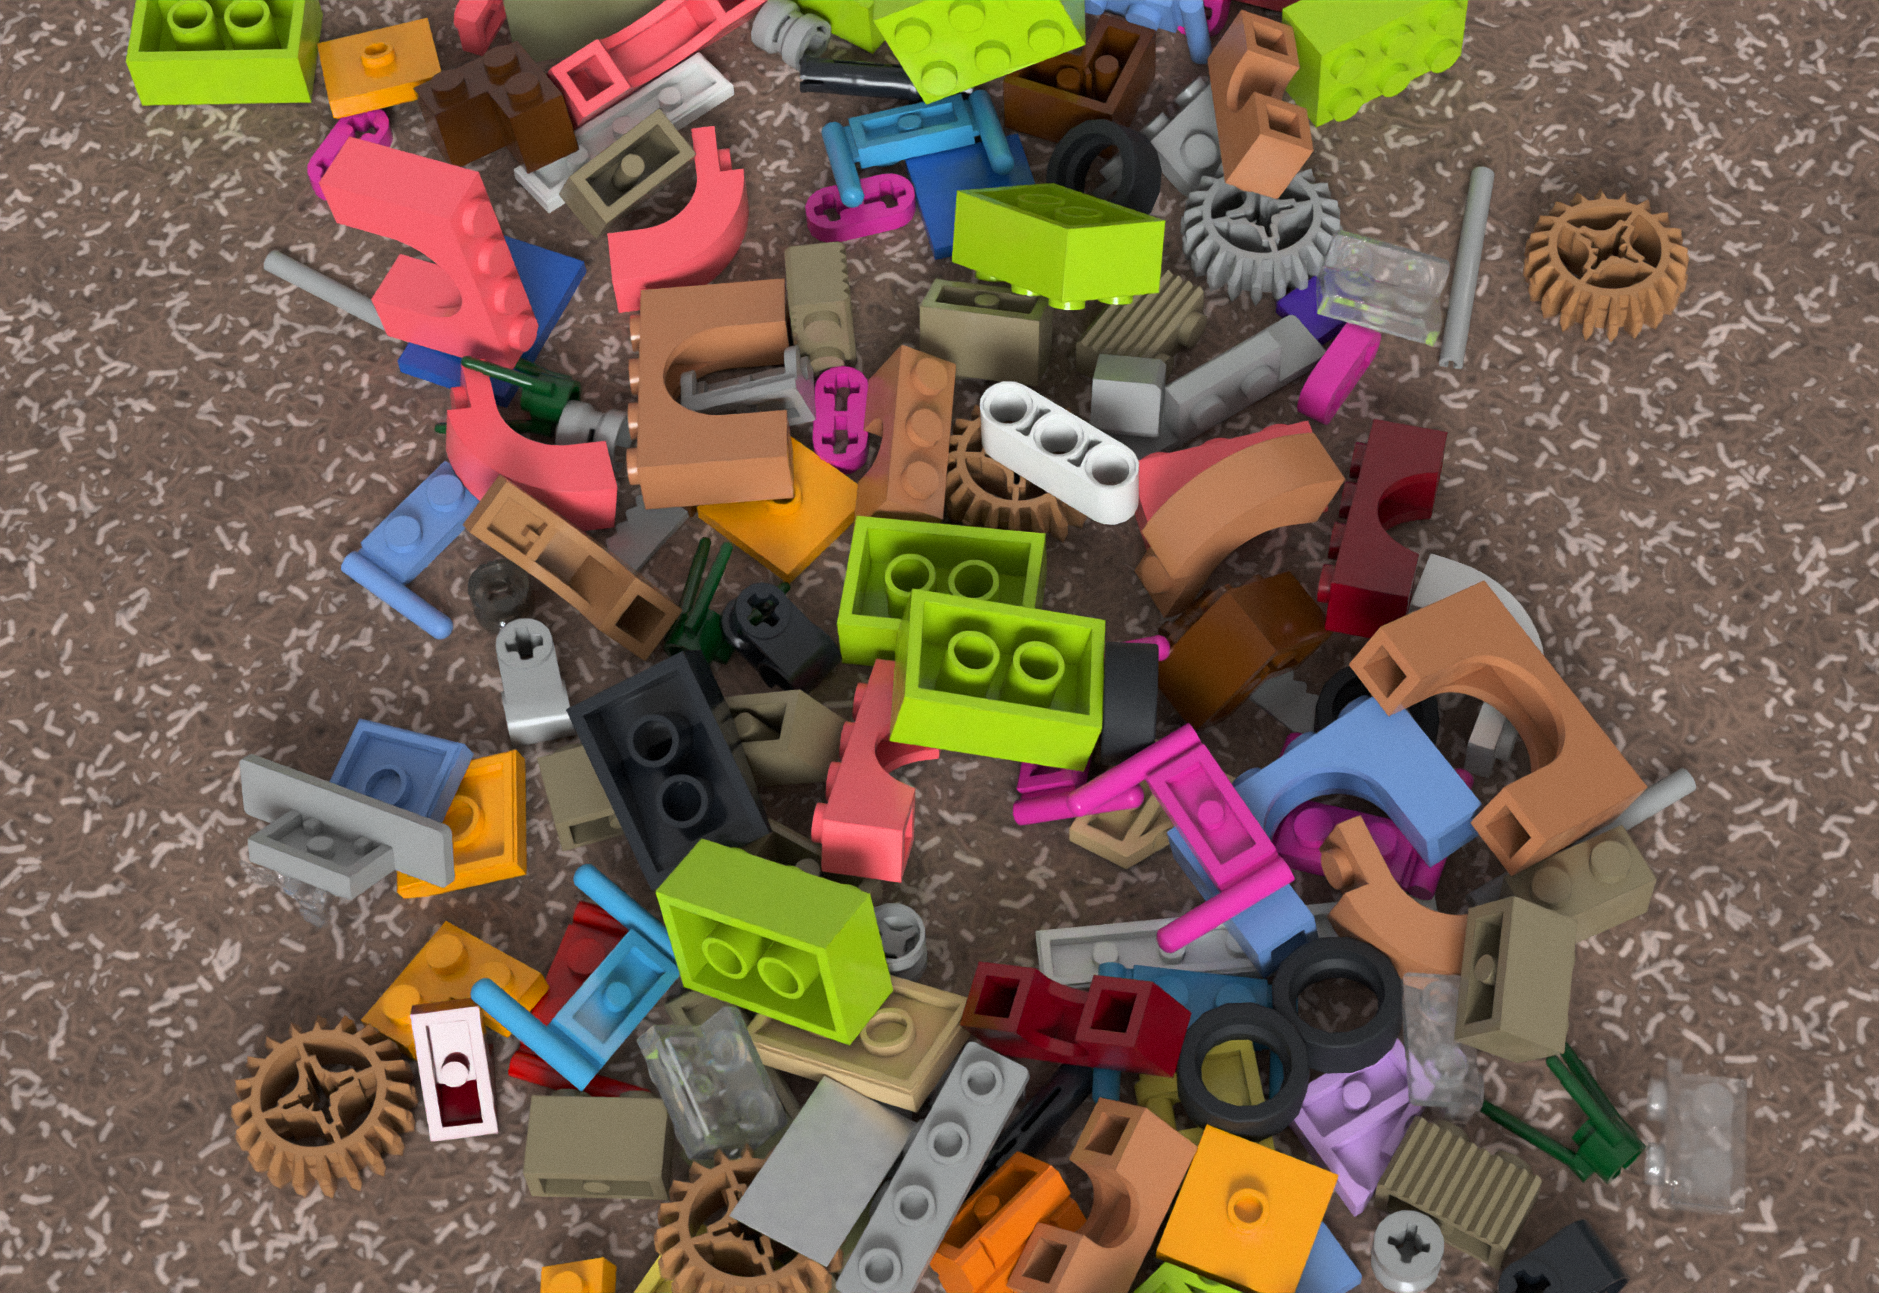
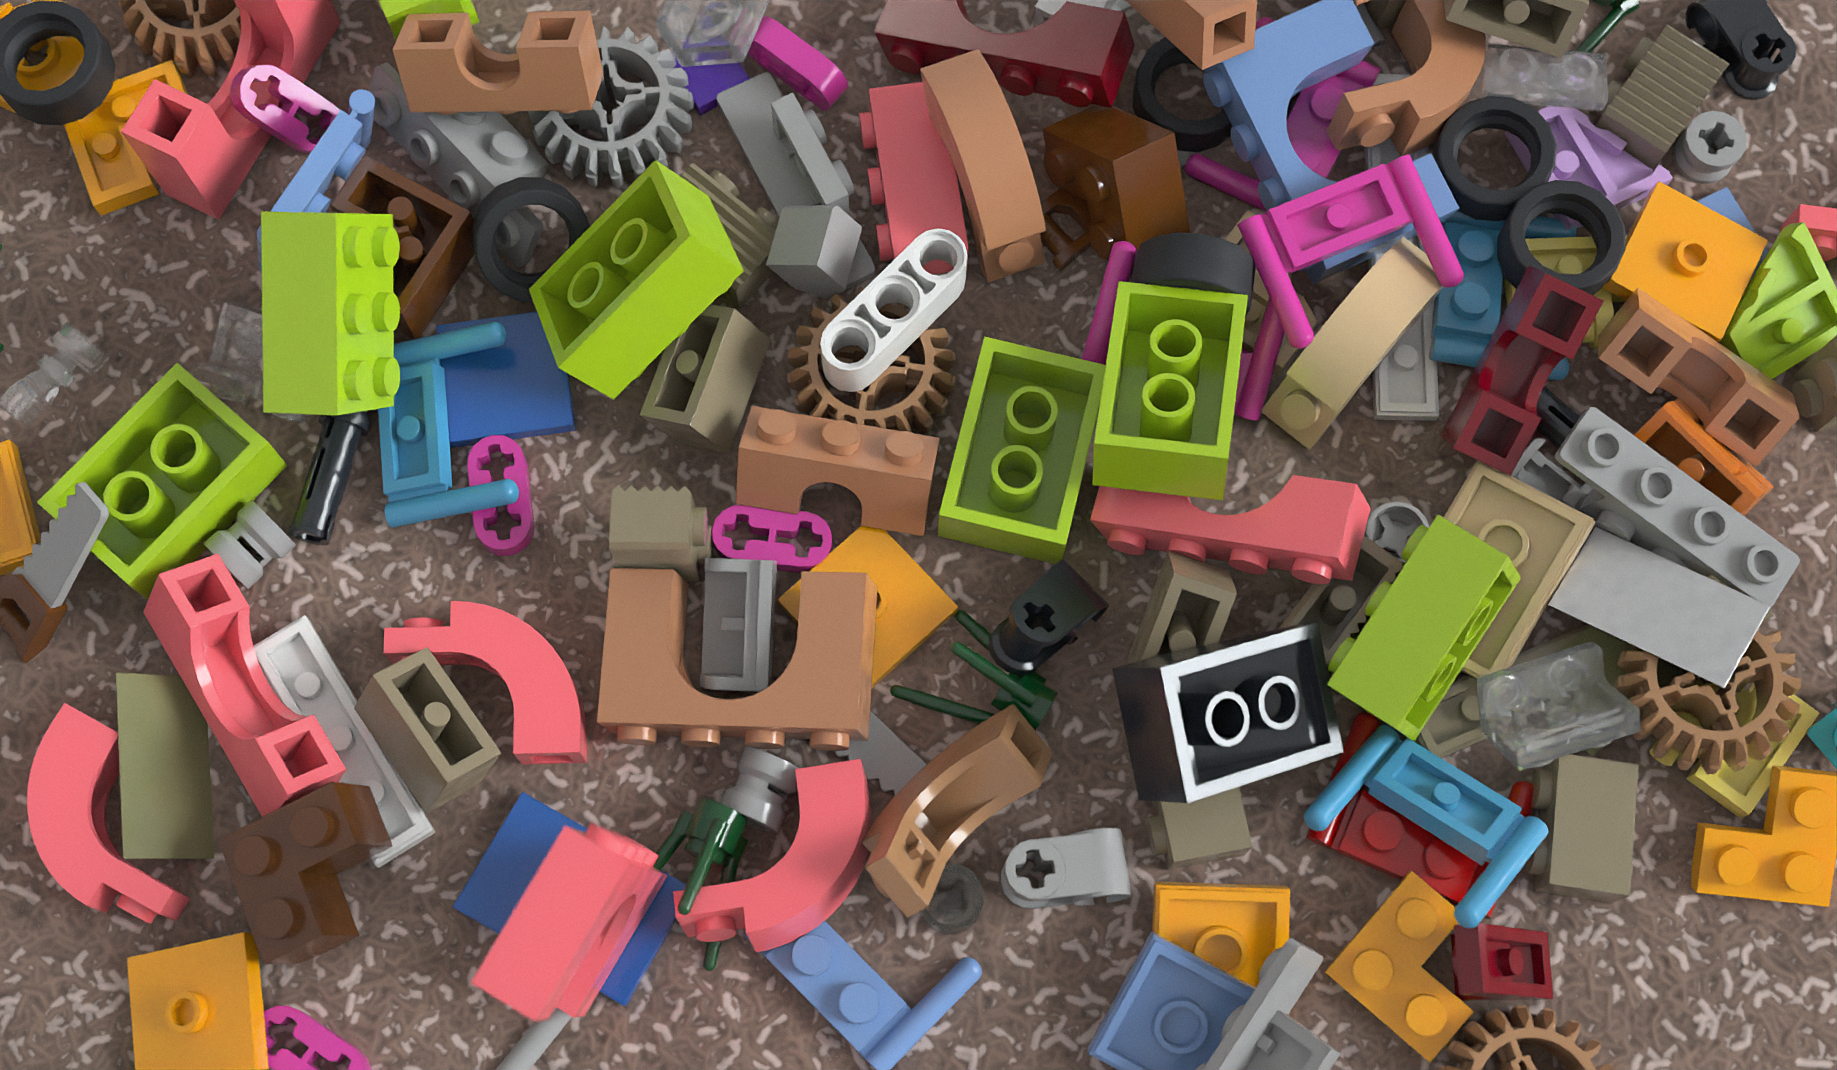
camera: 90 degrees left, 15 degrees up
(1104, 872) = (1353, 342): none -> tan arch

